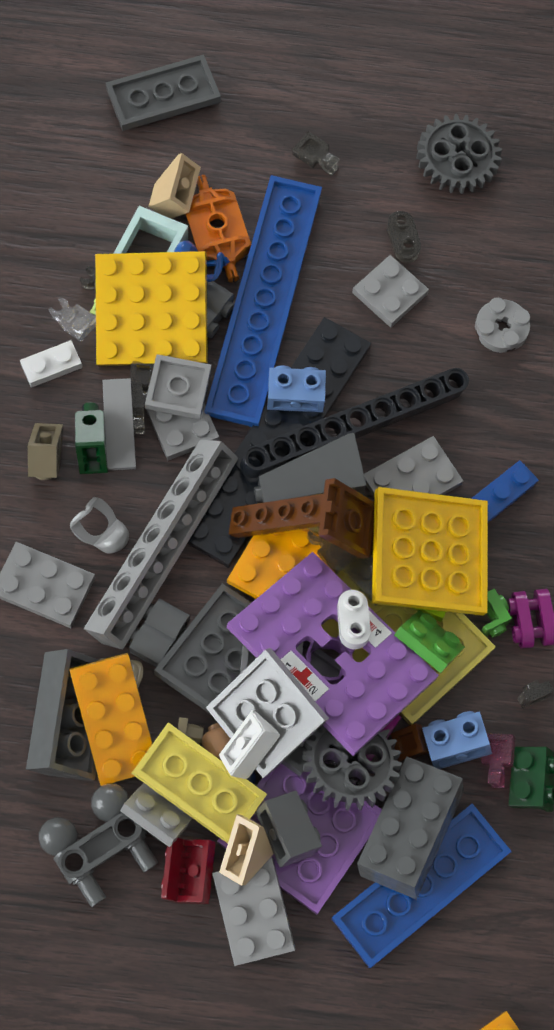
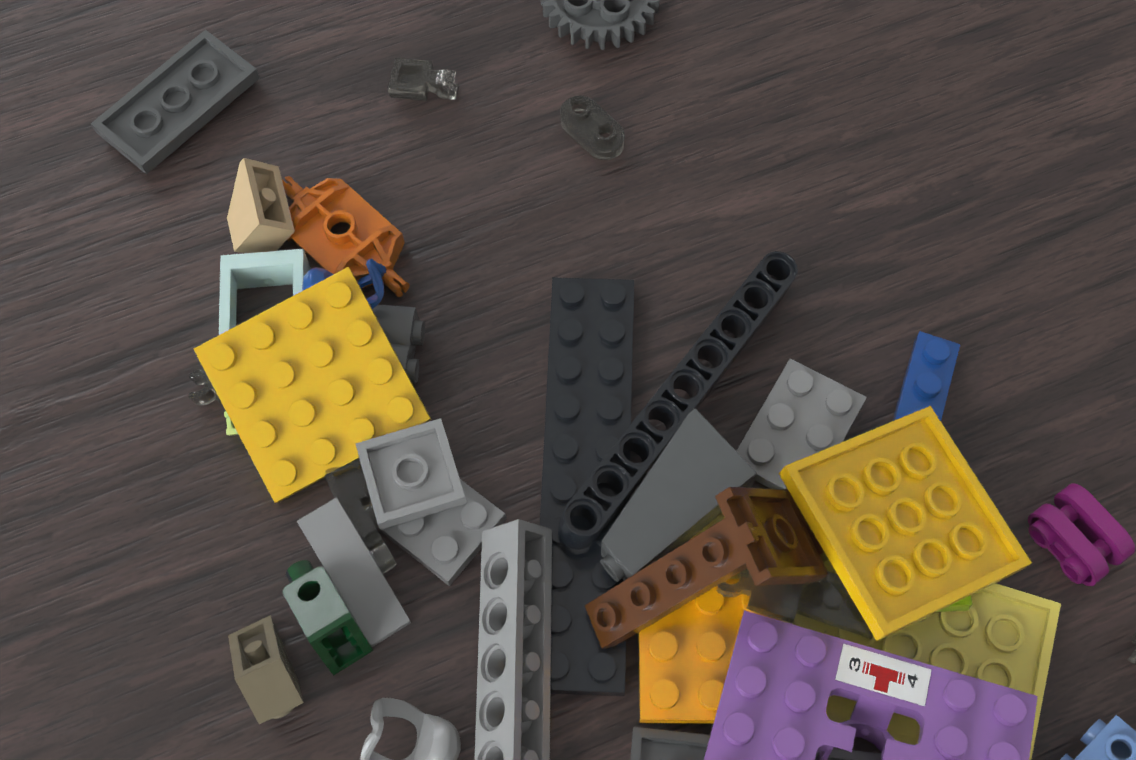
camera: 20 degrees left, 5 degrees down
(51, 363) = (207, 536): white plate -> none
(75, 321) = (212, 458): clear plate -> none
(263, 301) = (463, 307): blue plate -> none
(296, 389) = (577, 390): medium blue brick -> none
(353, 617) = (867, 680): white plate -> none
(390, 291) = (616, 202): light grey plate -> none
(430, 640) = (984, 649): bright green plate -> none
(498, 613) = (1042, 558): bright green bracket -> none
(509, 312) = (787, 154): light grey plate -> none

